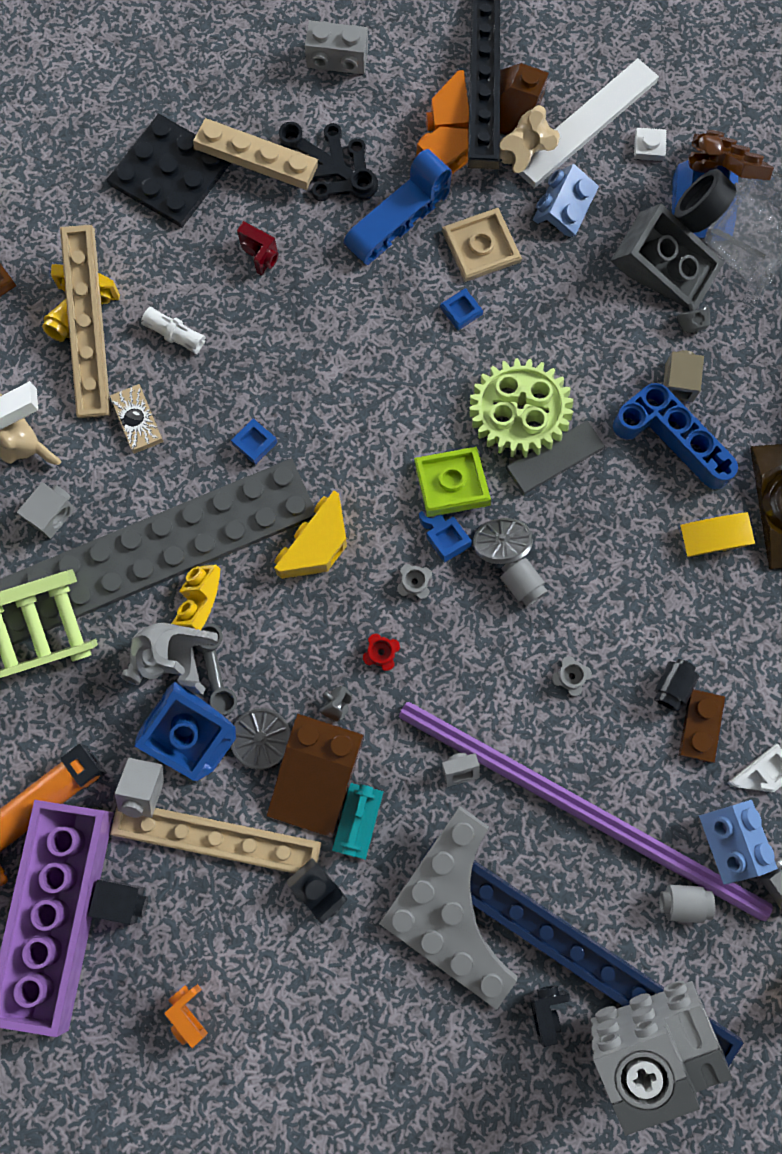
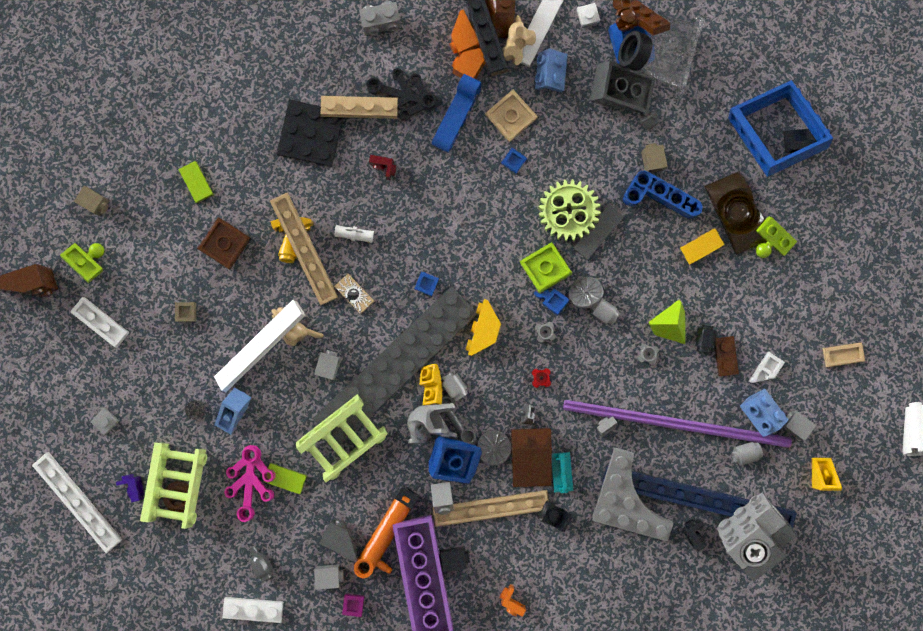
camera: 20 degrees left, 10 degrees up
(234, 614) = (454, 386): none -> light grey brick
(625, 638) = (670, 323): none -> lime slope

